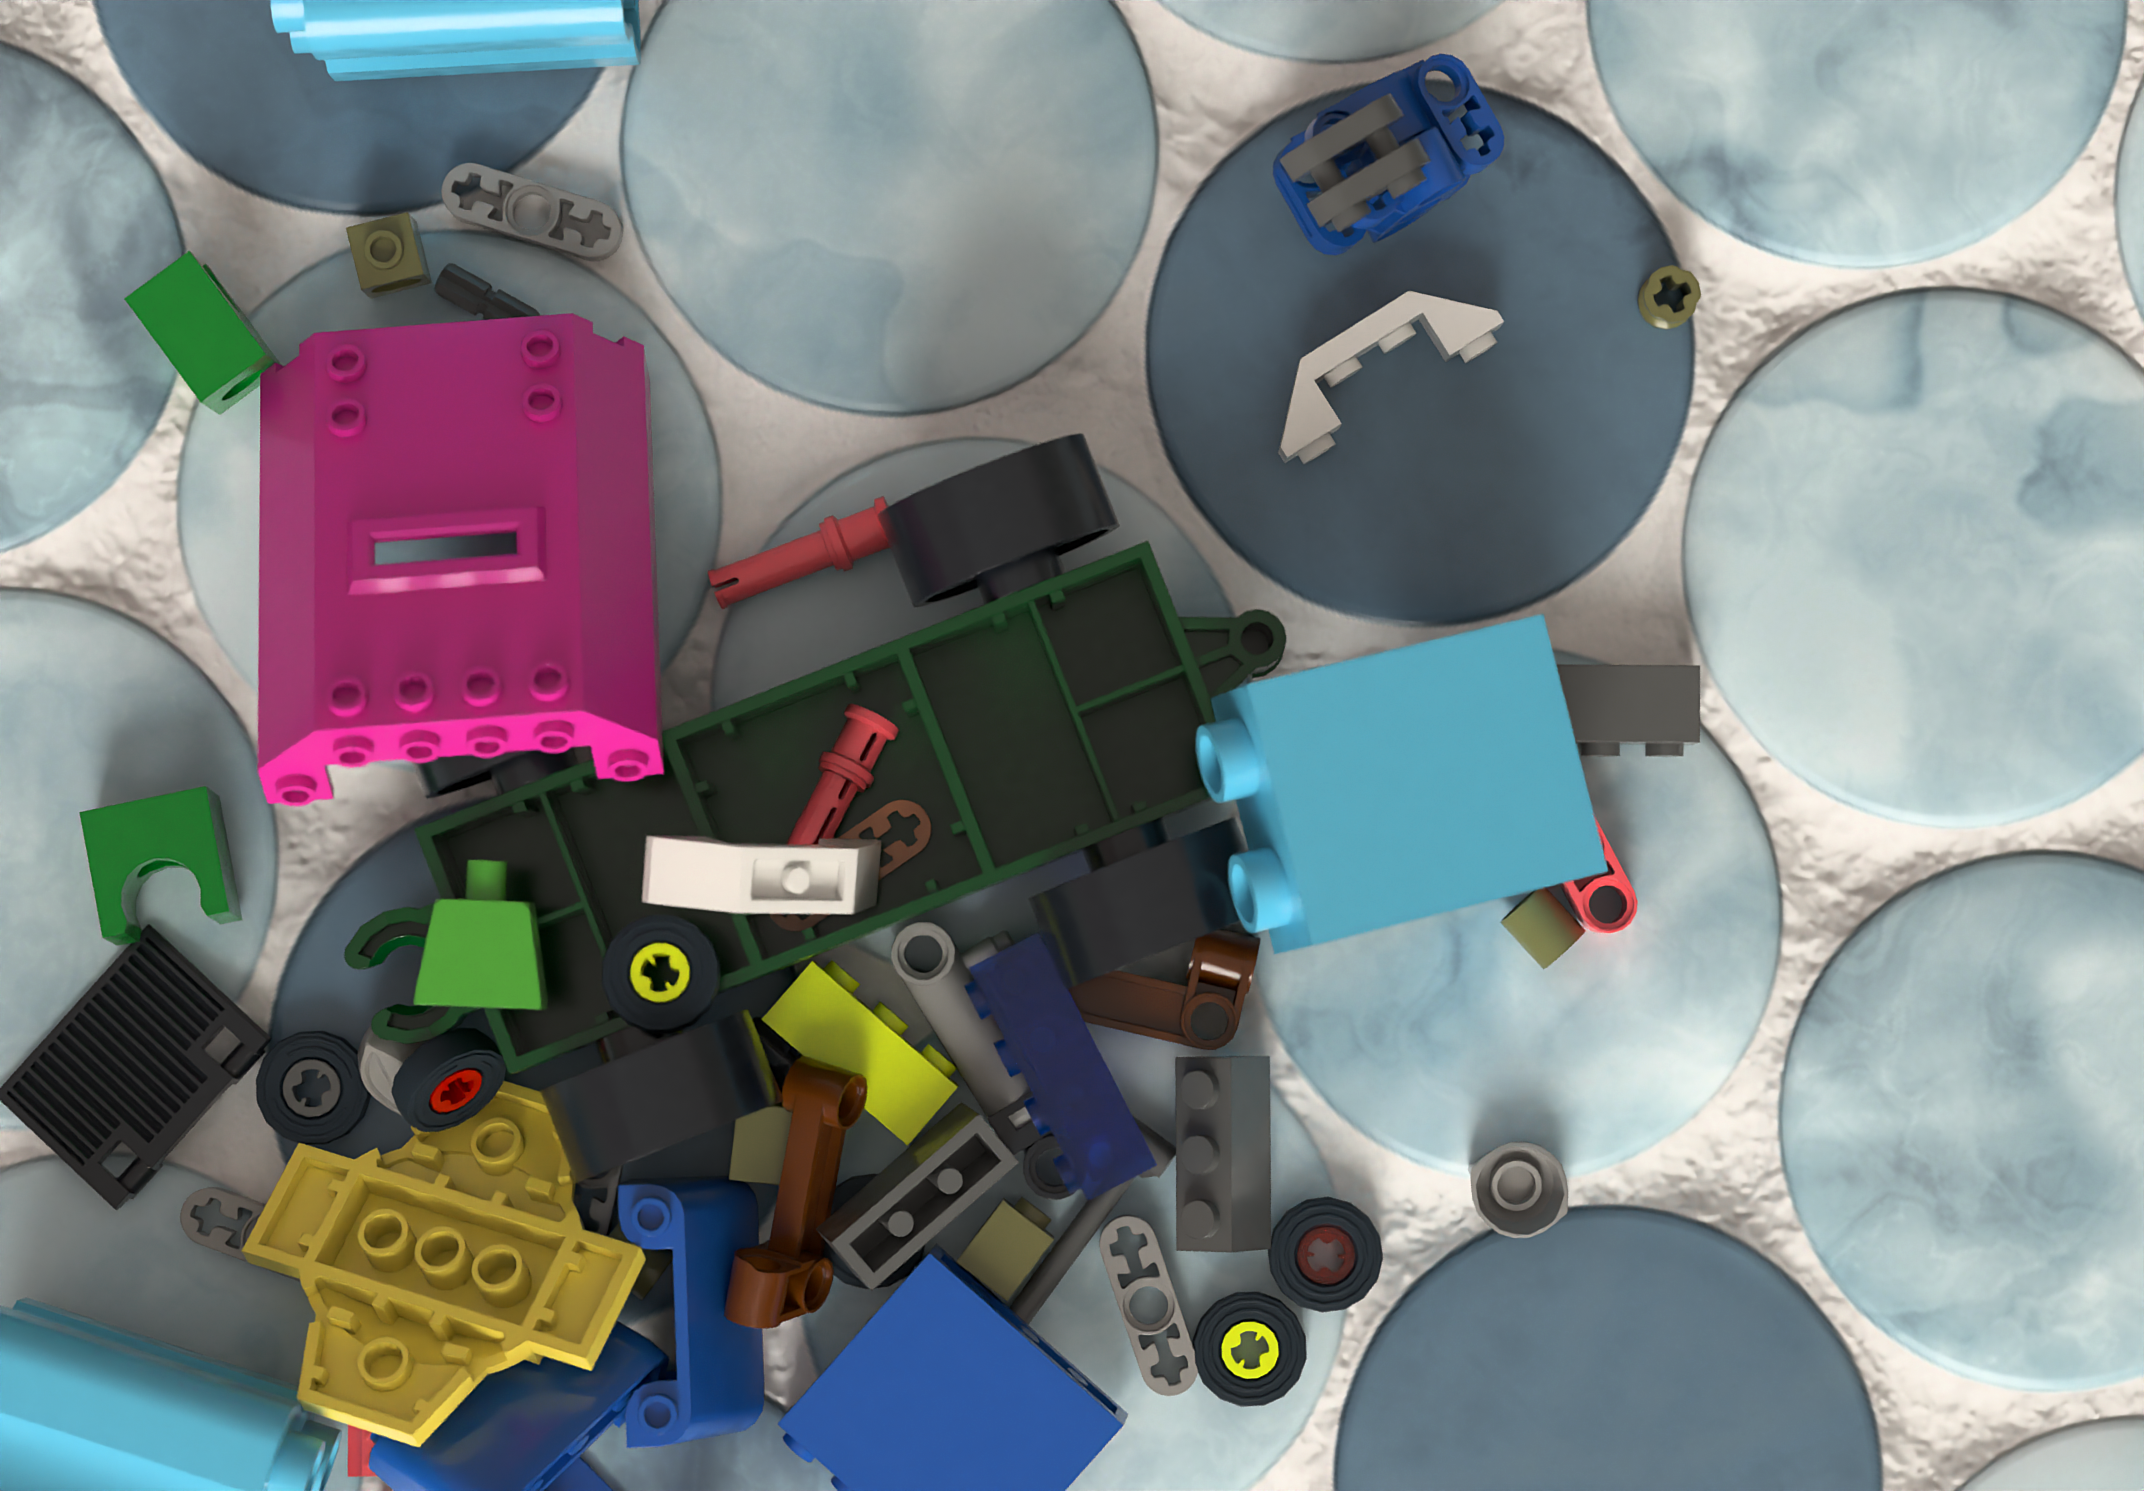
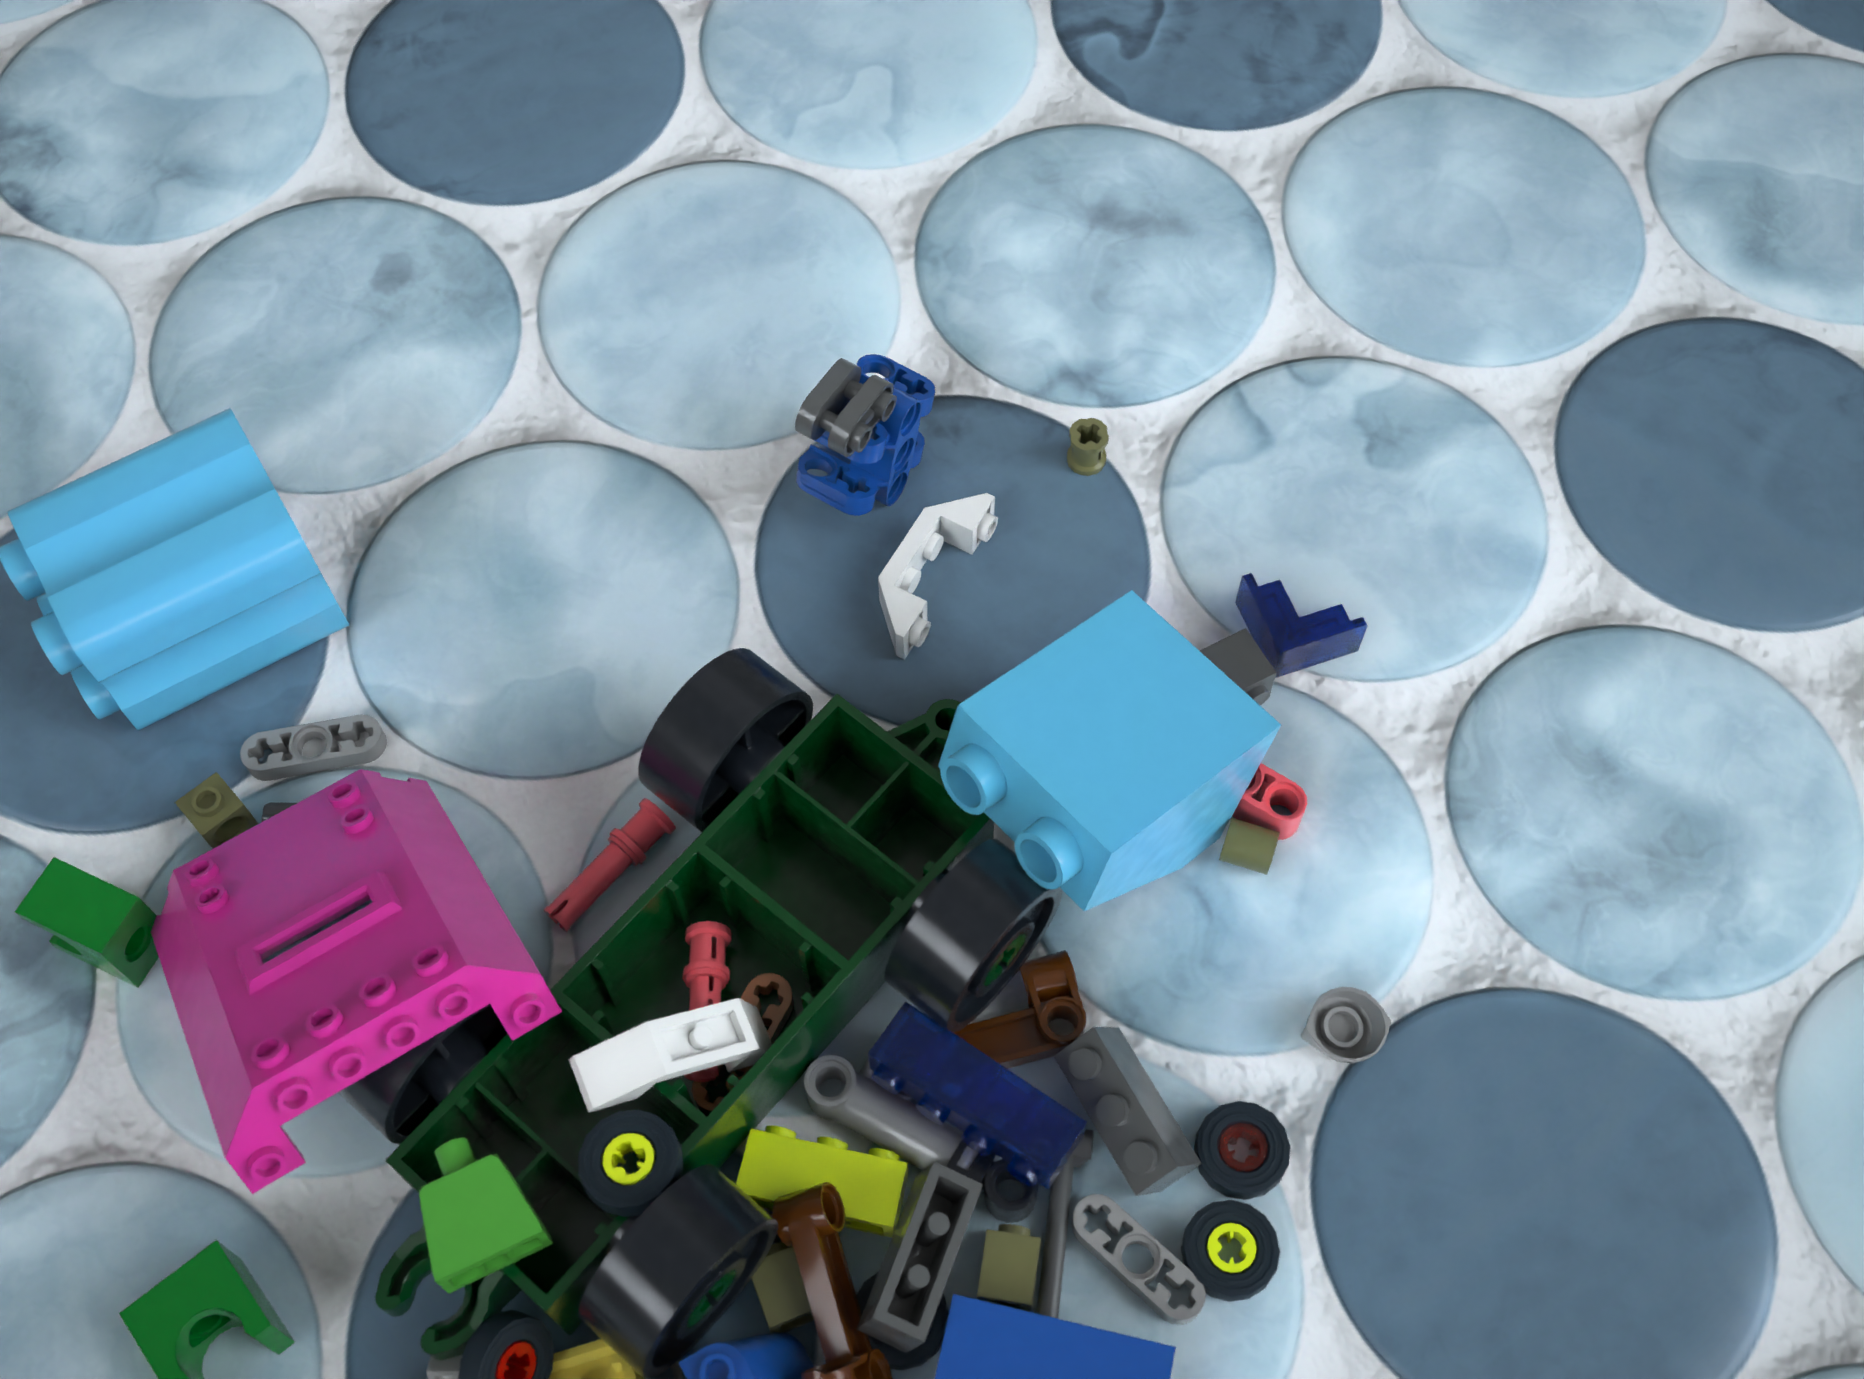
camera: 25 degrees left, 25 degrees down
(1756, 693) = (1292, 640): none -> clear blue panel

